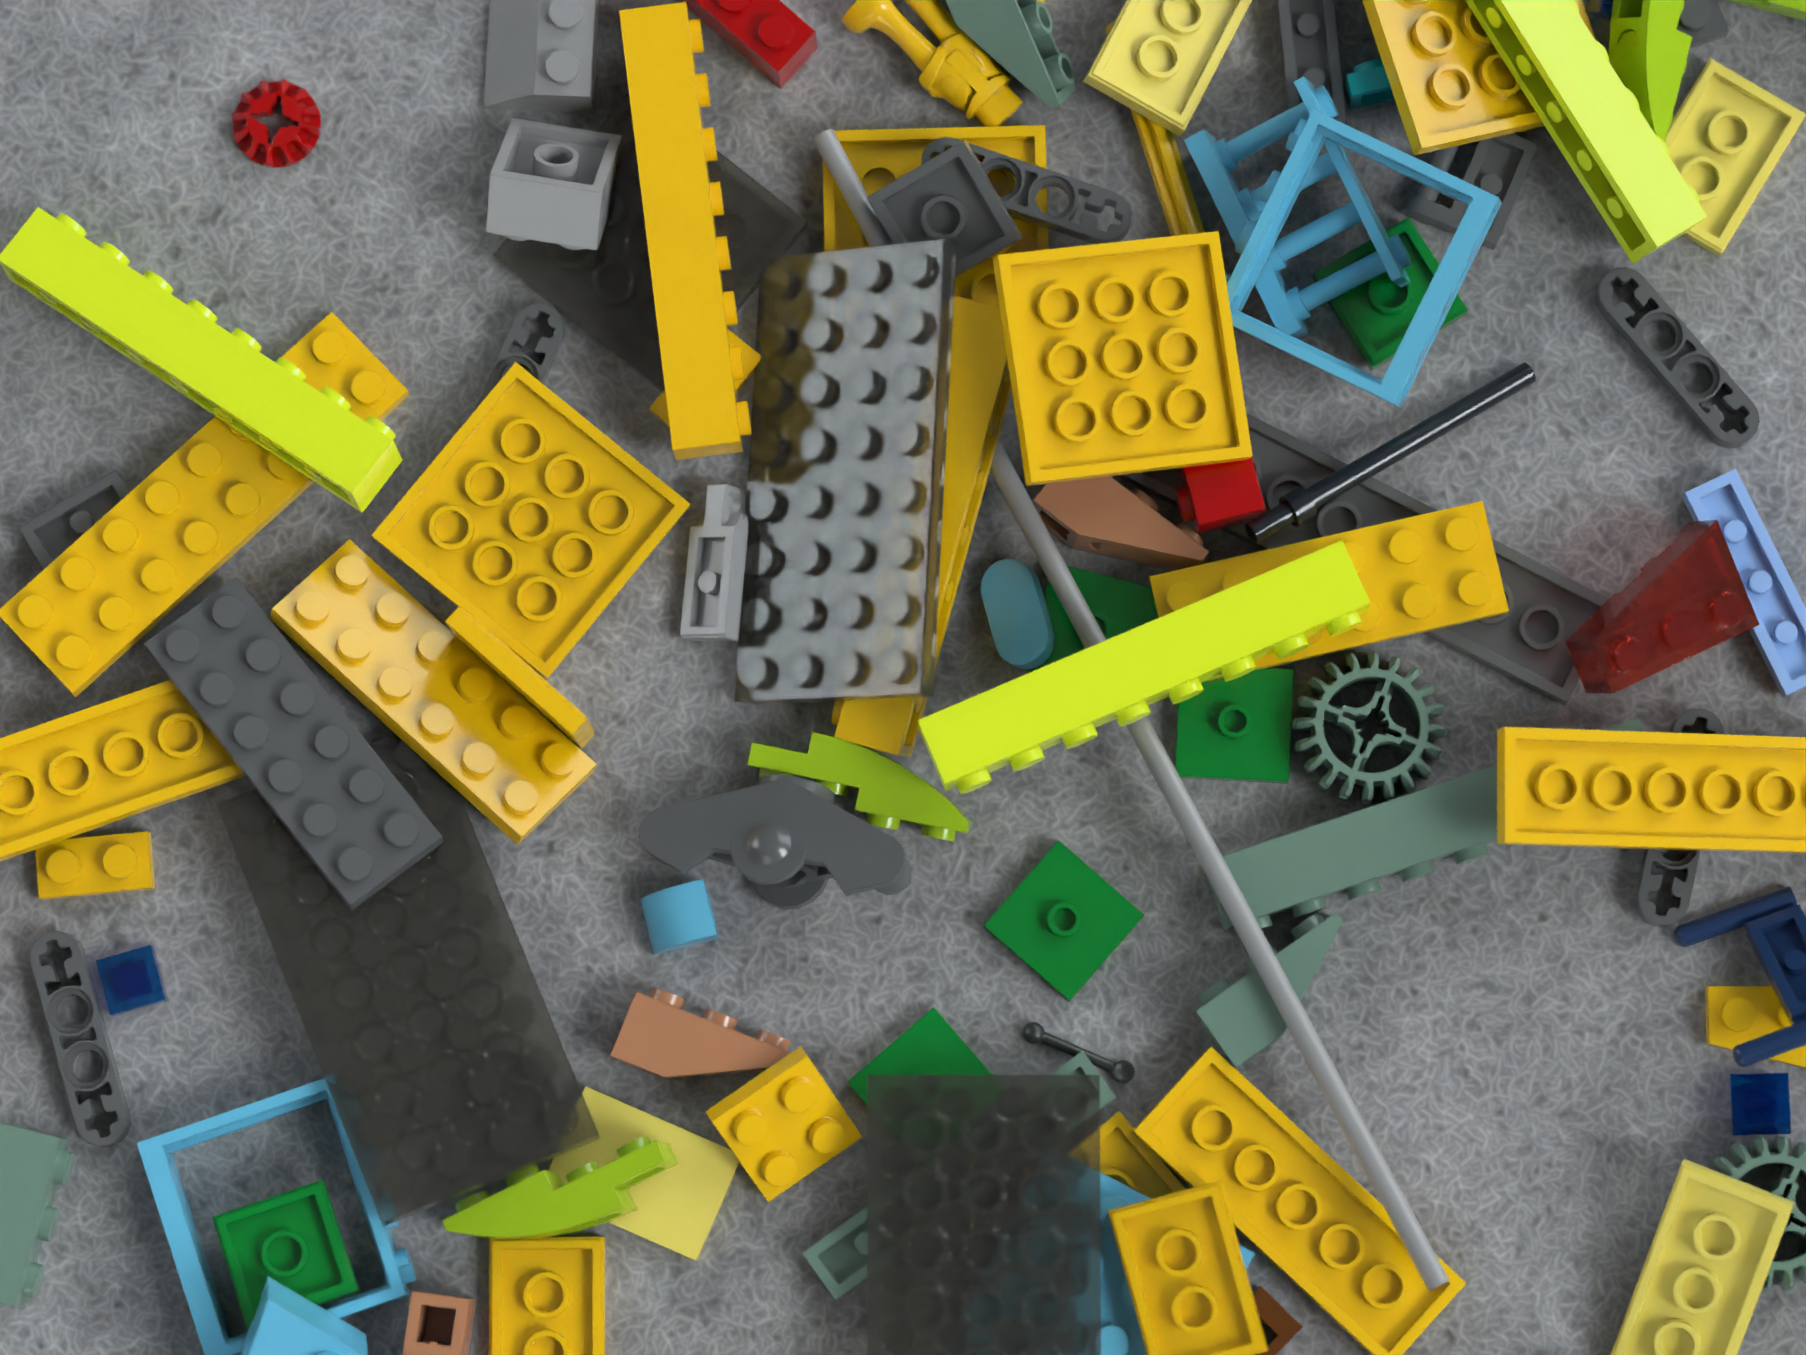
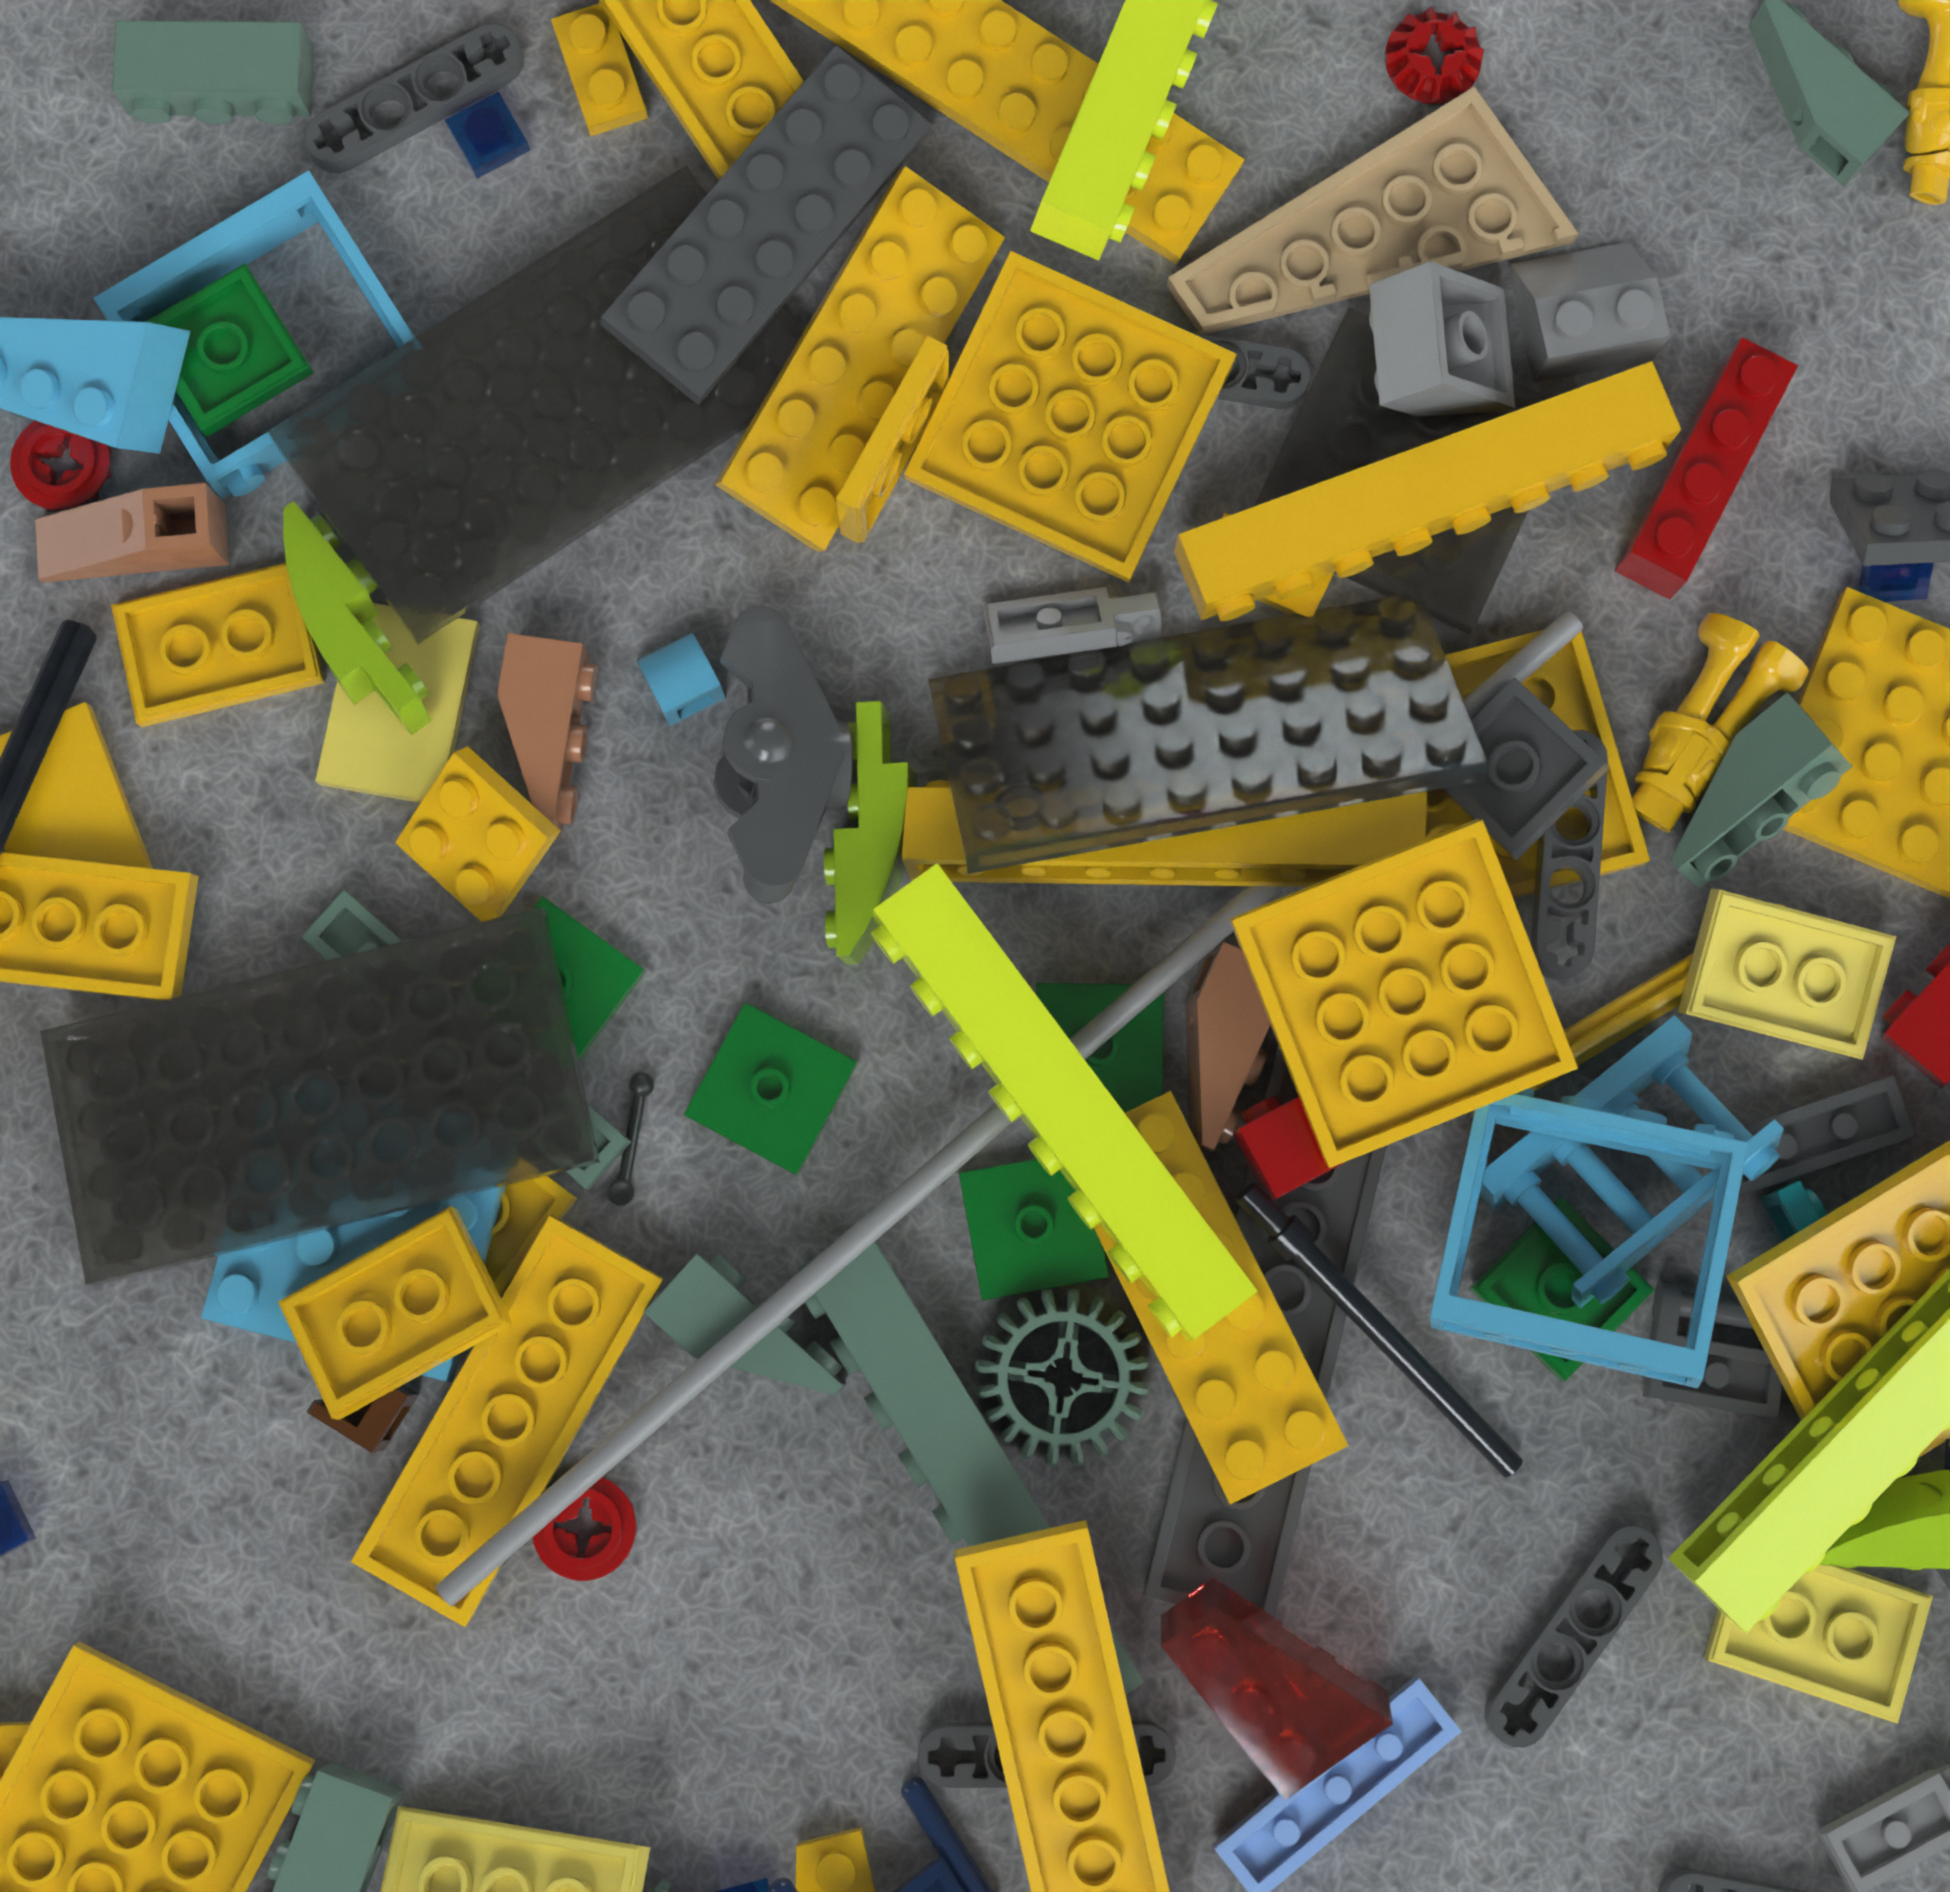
camera: 70 degrees right, 0 degrees up
(416, 181) = (1433, 193): none -> tan wing
(1017, 614) = (1096, 958): medium azure tile -> none
(1428, 1152) = (605, 1551): none -> red gear

